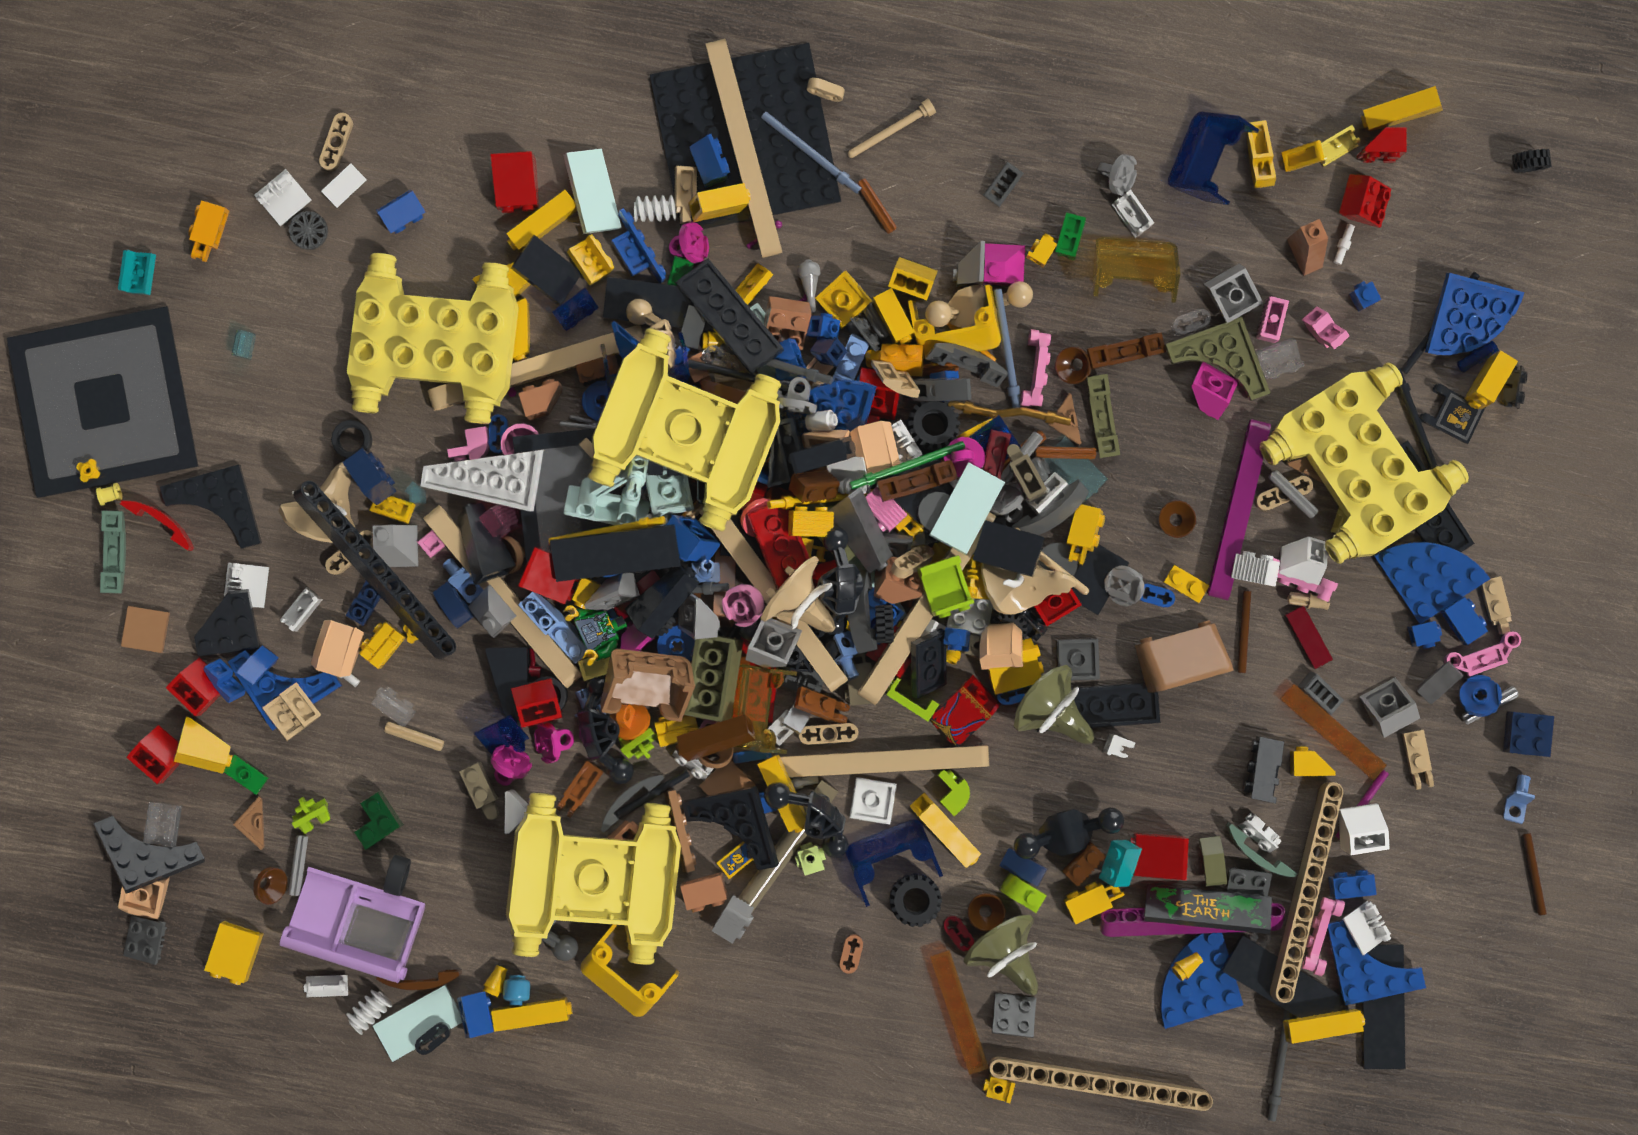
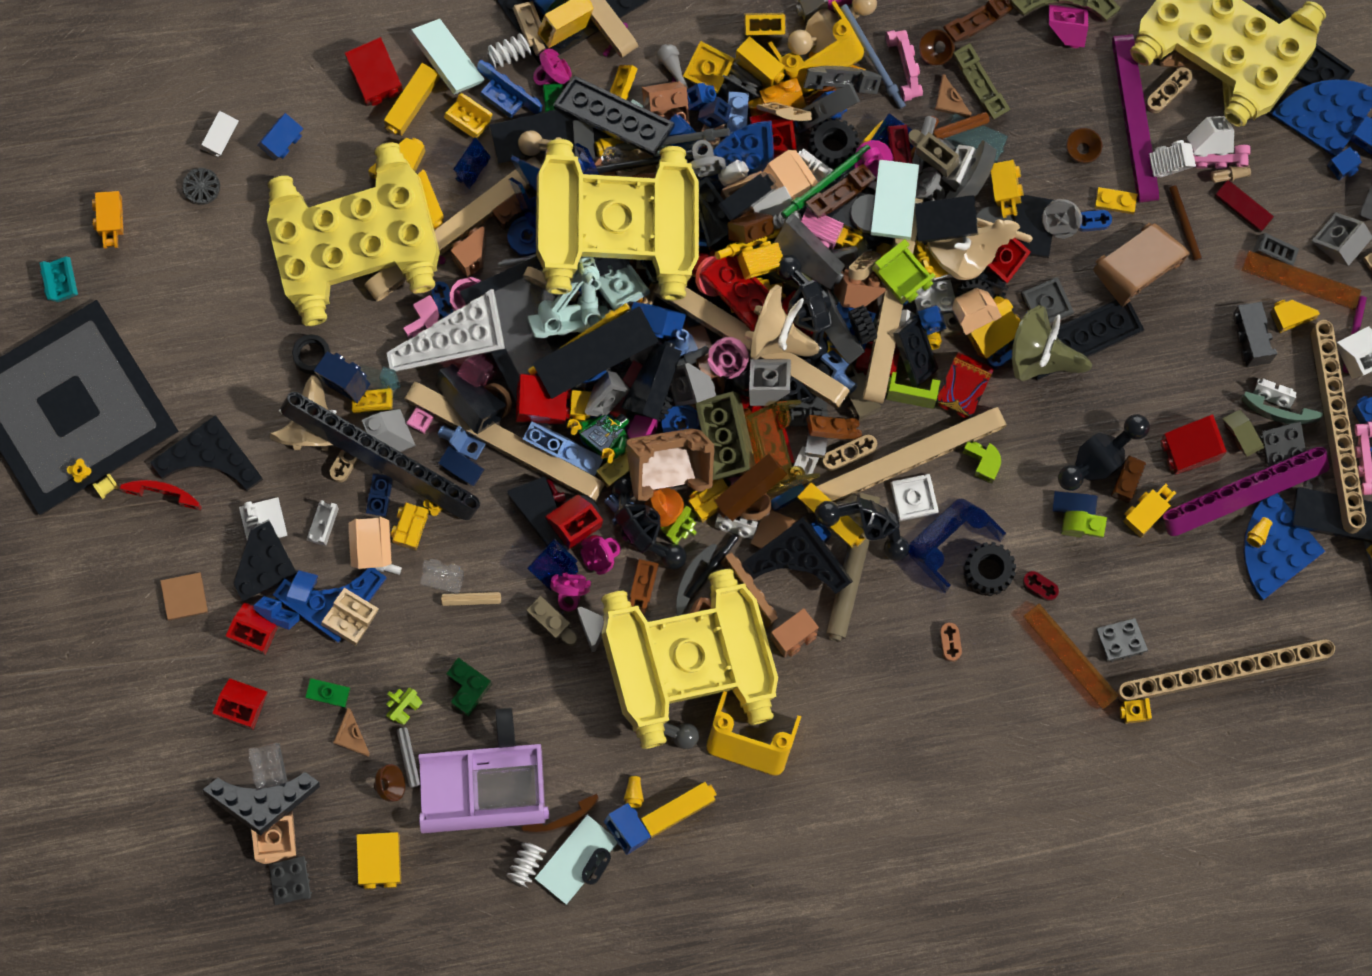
camera: 20 degrees left, 10 degrees down
(113, 552) = (128, 535): sand green slope -> none
(202, 748) = (279, 681): yellow slope -> none
(243, 344) = (180, 307): clear light blue piece -> none
(283, 197) = (167, 165): white hinge -> none
(325, 154) = (192, 113): tan beam -> none
(326, 985) = (477, 858): white hinge -> none
(491, 611) = (500, 457): light grey slope -> none
(516, 990) = (656, 791): dark azure head -> none
(546, 270) = (432, 138): black tile -> none
(733, 919) = (830, 649): light grey brick -> none
(735, 860) = (812, 596): tile -> none
(810, 866) = (879, 575): yellowish green brick -> none
(945, 830) = (991, 496): yellow slope -> none
(994, 919) = (1060, 545): reddish brown piece -> none
(1006, 952) = (1088, 585): olive animal -> none
(1049, 417) = (934, 100): pearl gold bar -> none
(1114, 745) = (1114, 358): white hinge -> none
(1120, 863) = (1160, 463): teal brick -> none
(1208, 909) = (1257, 473): black tile -> none
(1293, 494) = (1177, 85): light grey axle -> none

